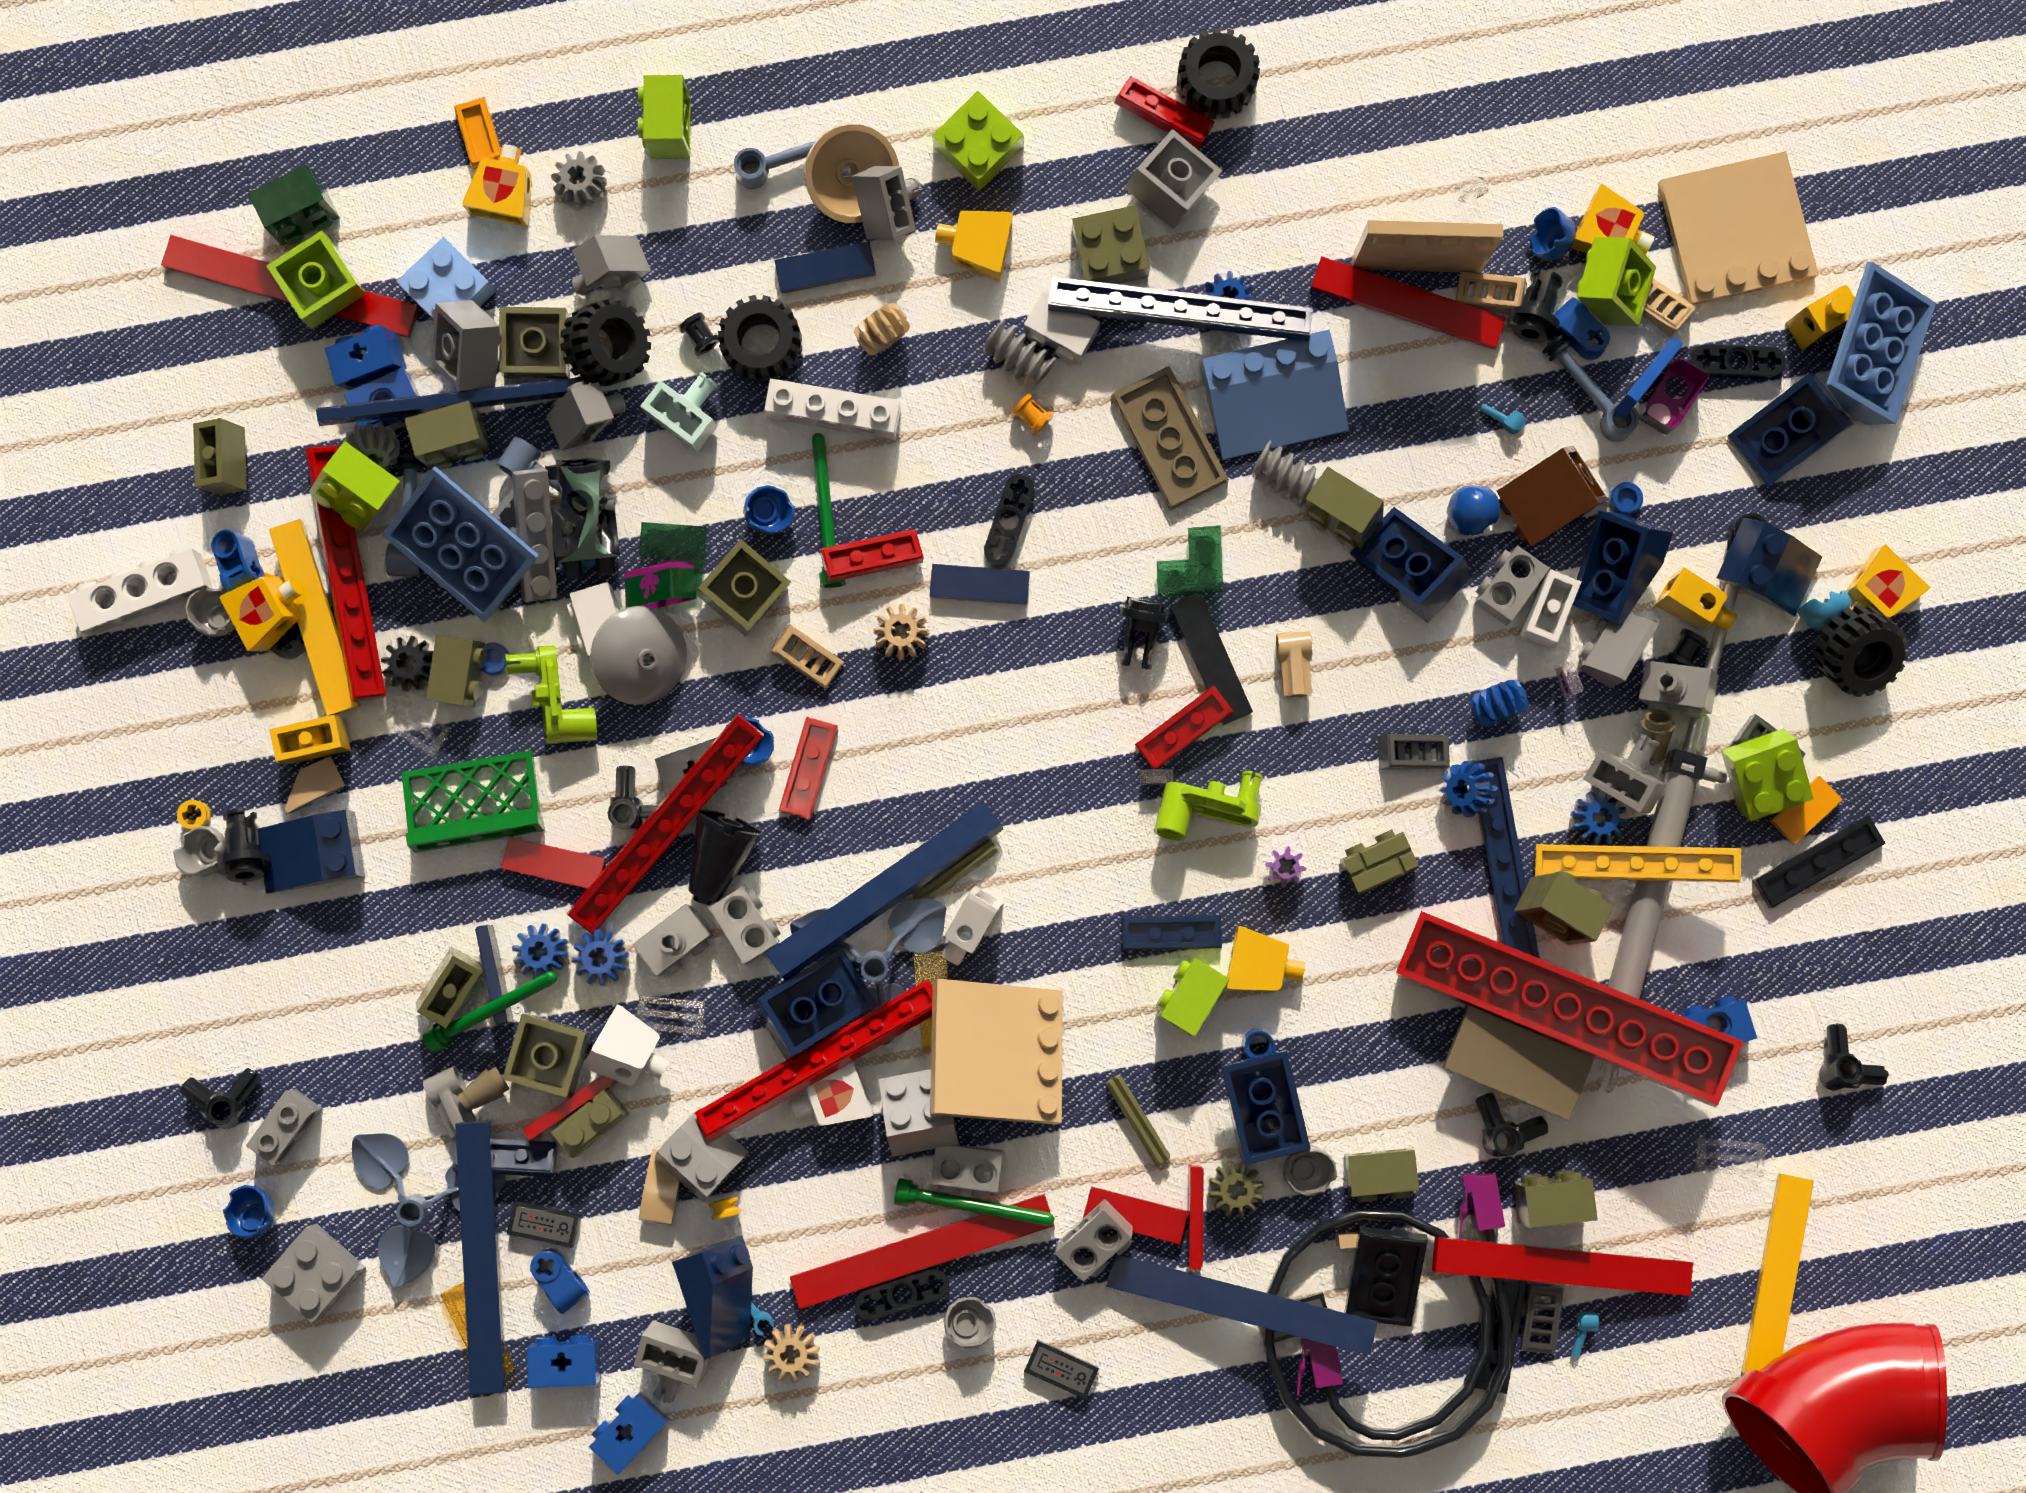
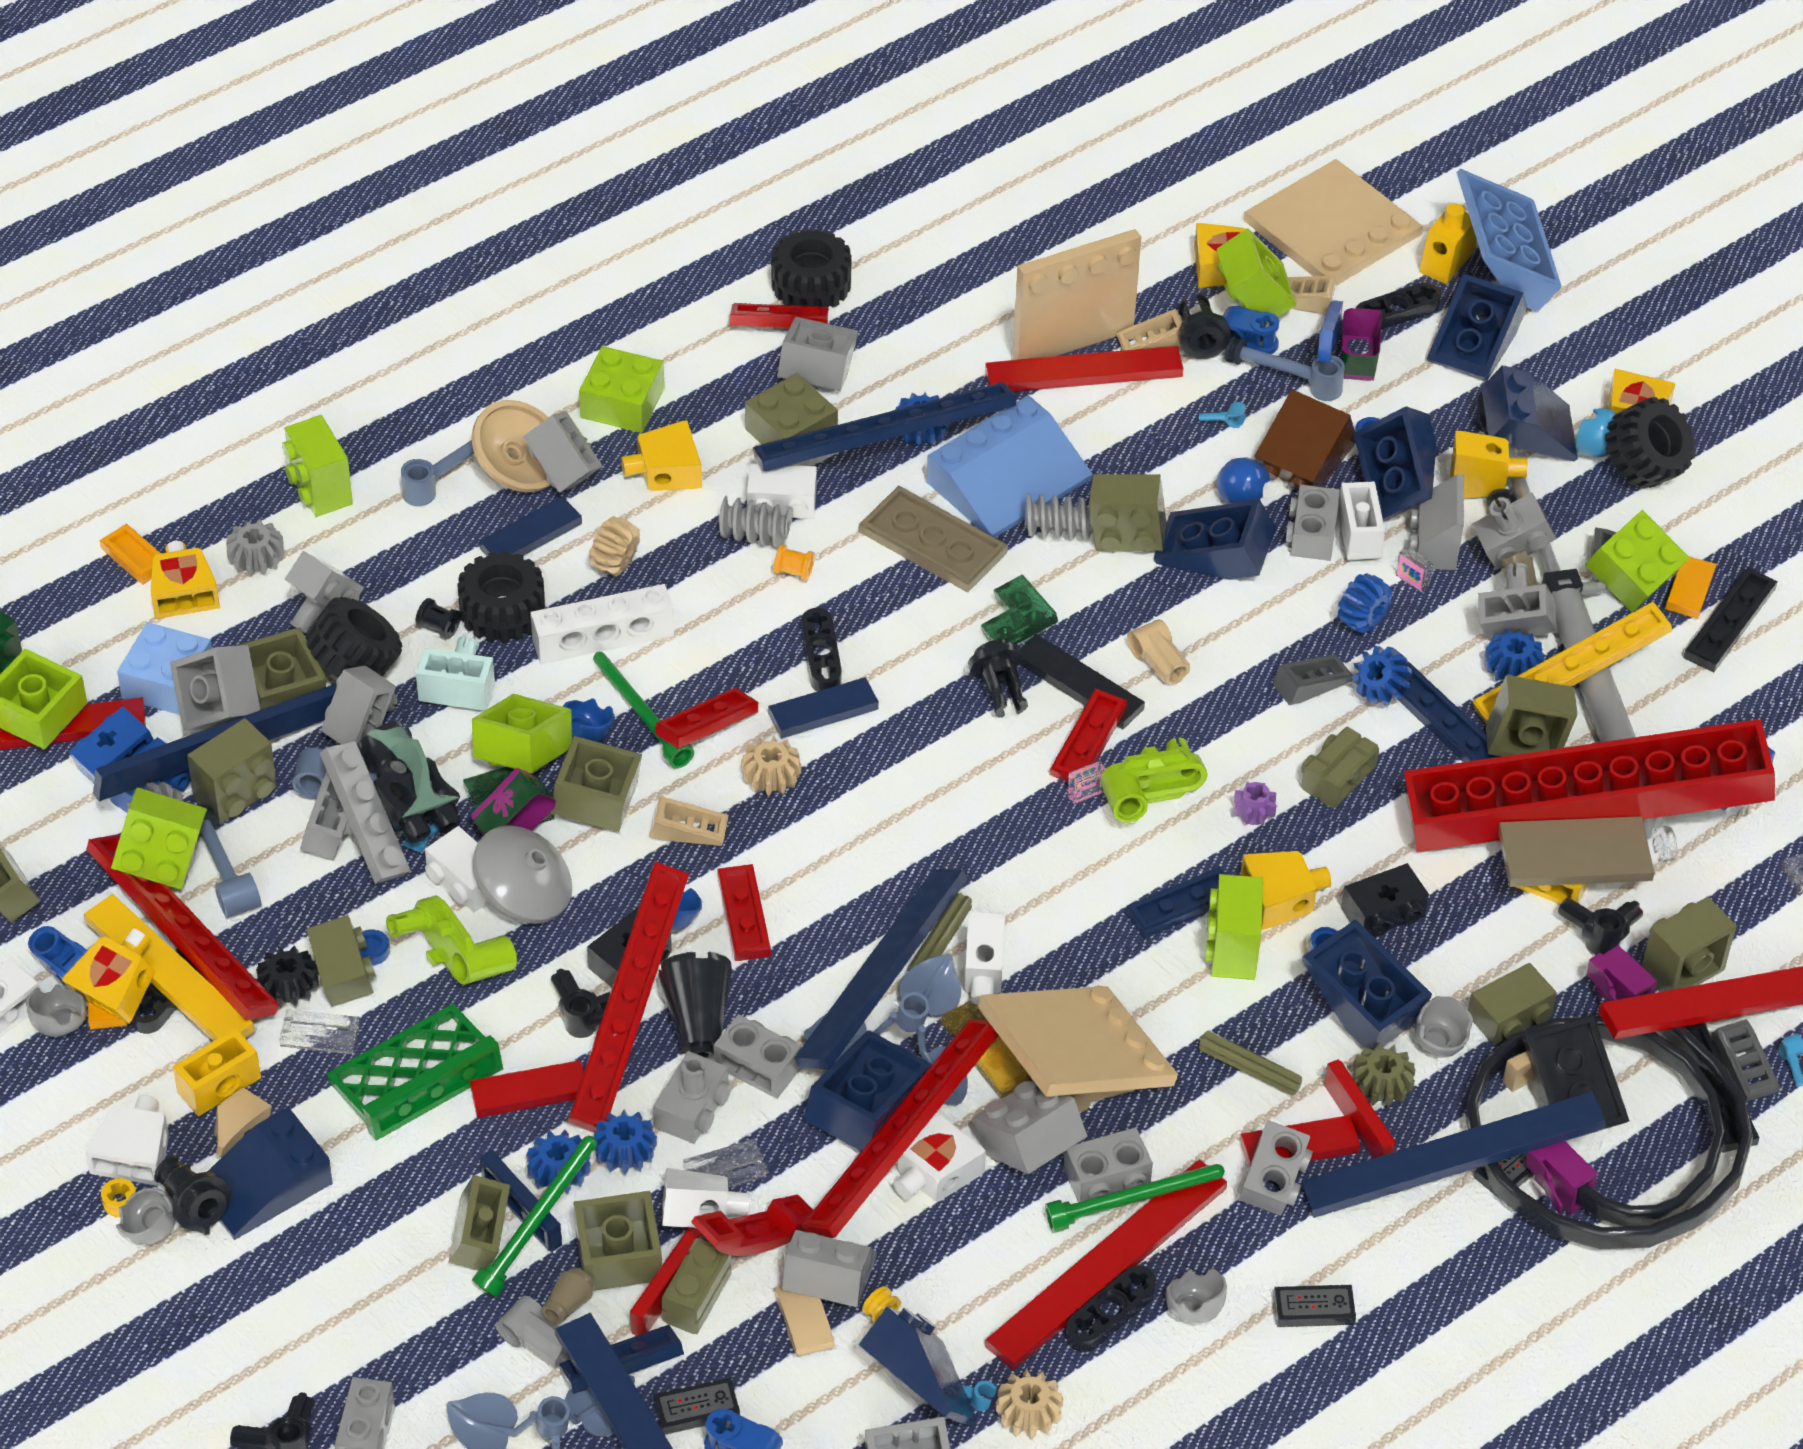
camera: 30 degrees left, 35 degrees down
(221, 771) = (130, 1142): none -> white torso
(460, 545) = (299, 830): medium blue slope -> none
(657, 1097) = (755, 1231): none -> red slope
(703, 509) = (521, 733): none -> lime brick
(1356, 1025) = (1385, 900): none -> black brick
(1553, 234) = (1178, 273): blue hair -> none

